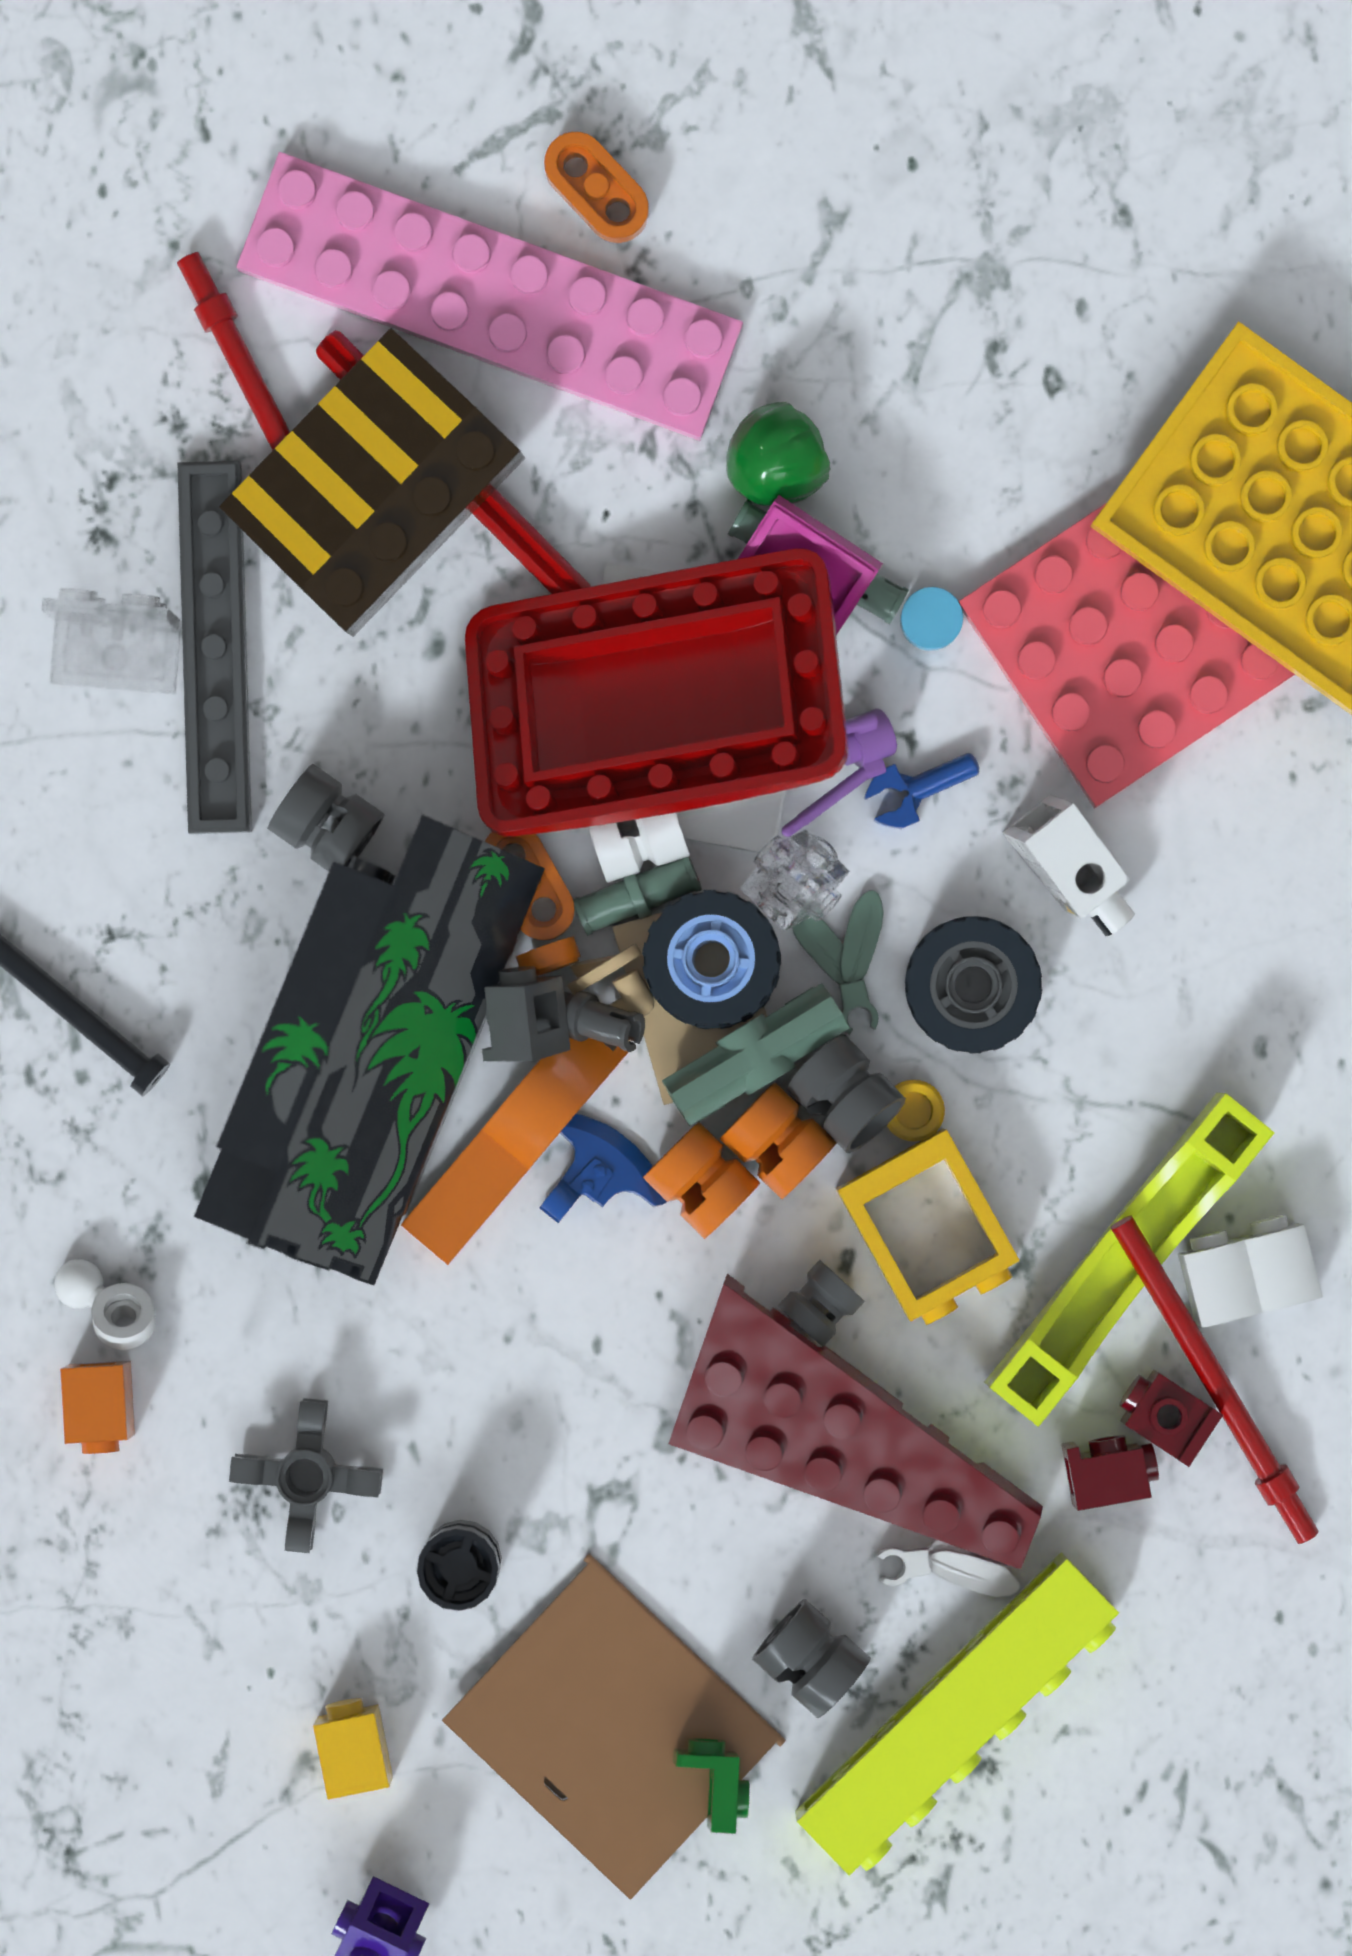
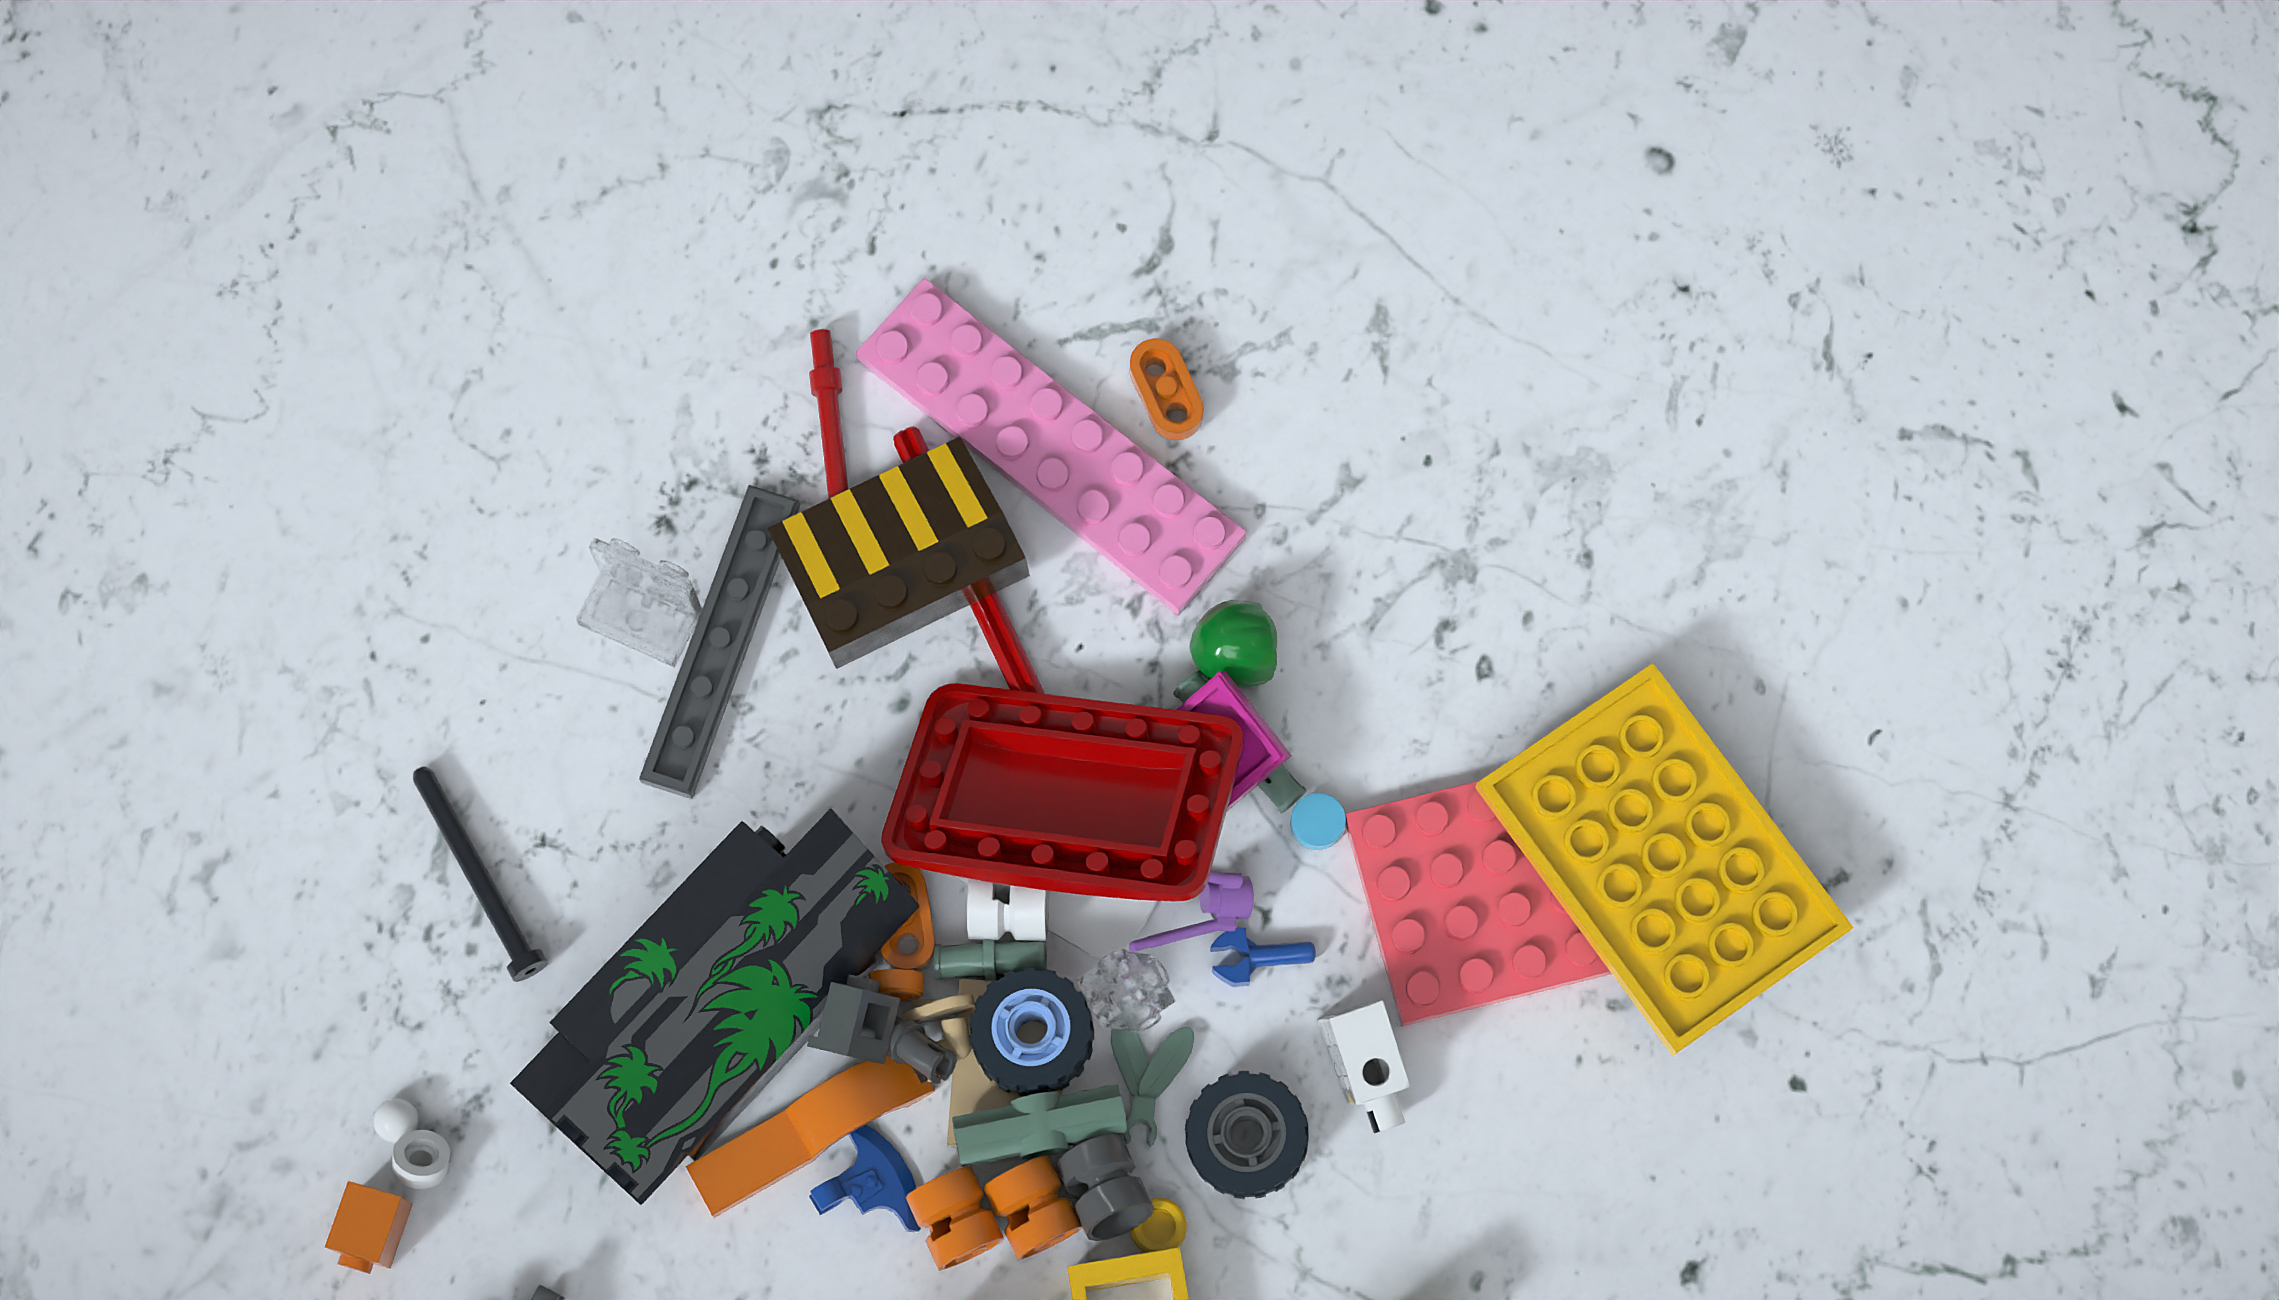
camera: 20 degrees right, 15 degrees down
(309, 806) = (748, 788): dark grey wheel -> none

